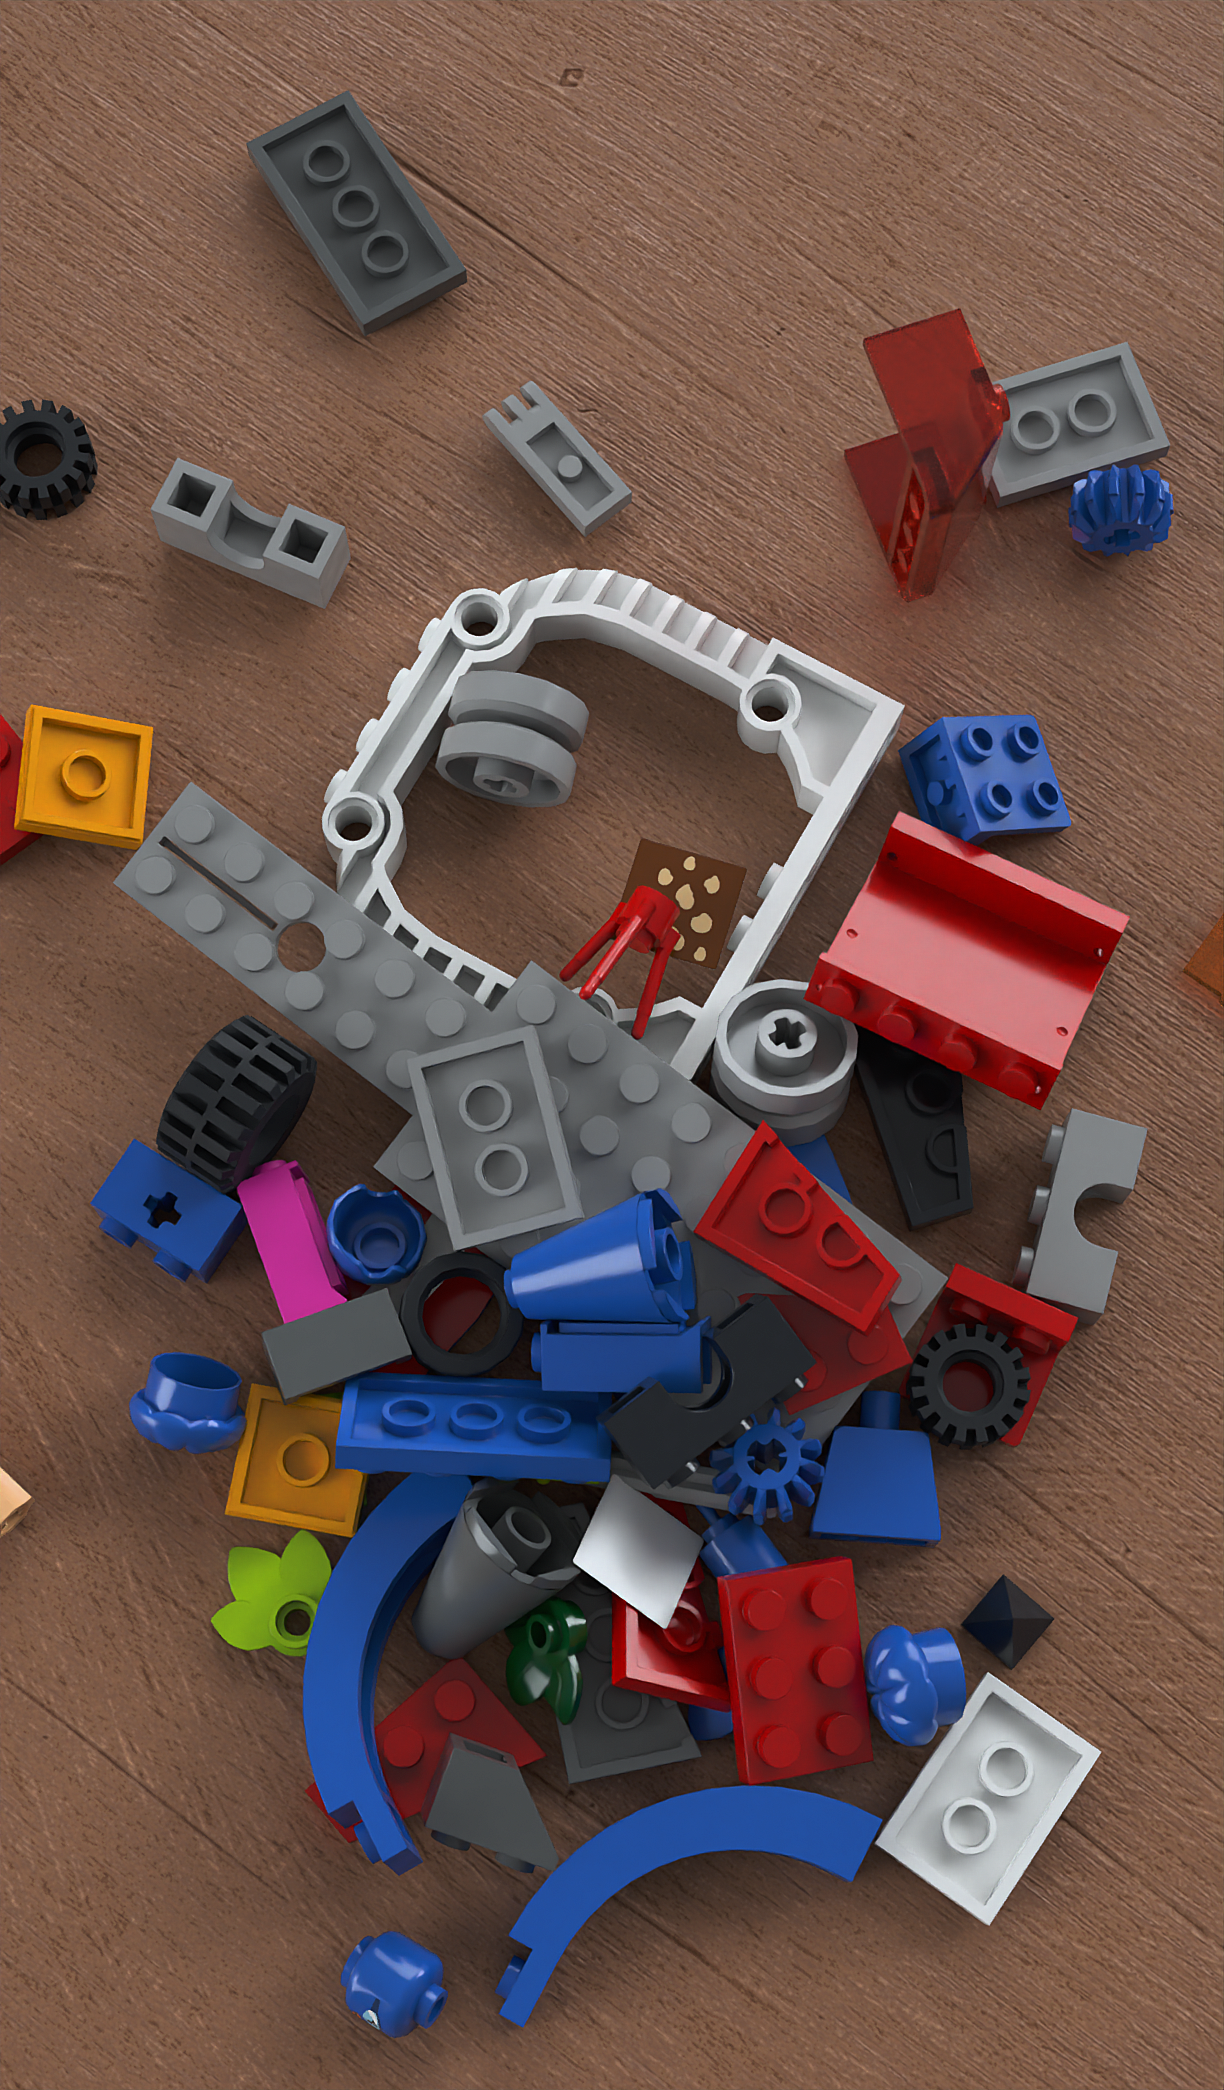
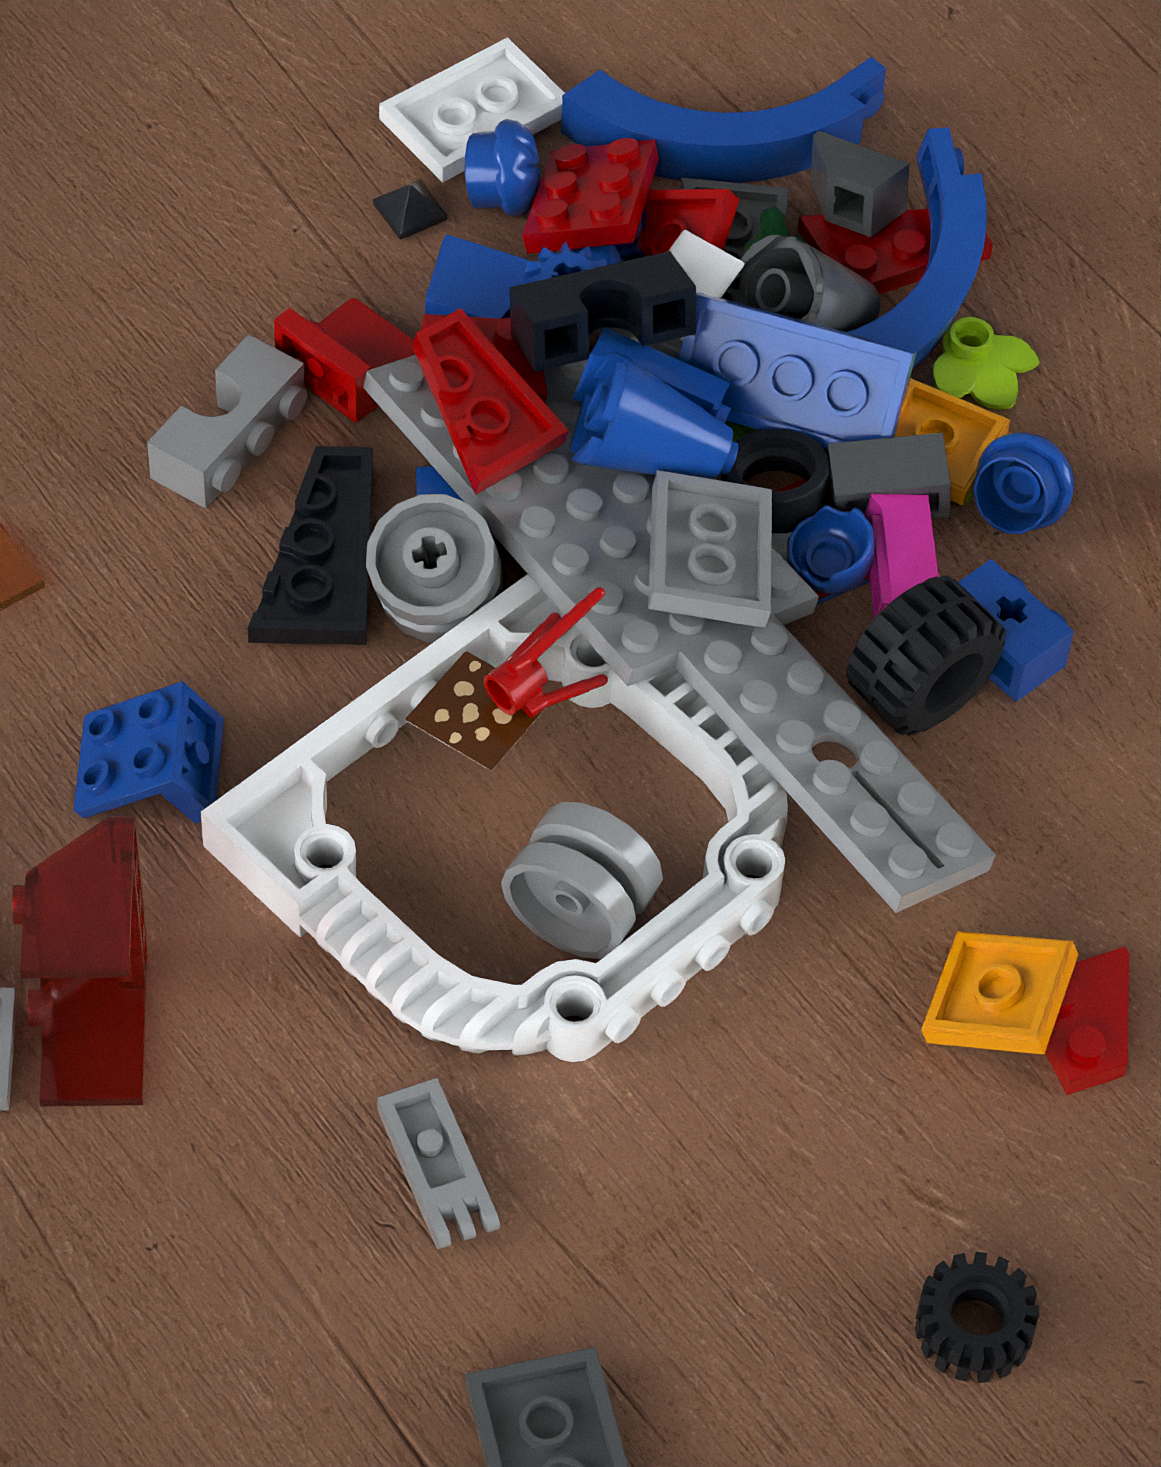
camera: 165 degrees left, 20 degrees down
(210, 520) = (736, 1130): light grey arch -> none
(394, 1984) = (960, 109): blue head -> none
(968, 960) = (250, 594): red panel -> none
(996, 1358) = (377, 302): black tyre -> none

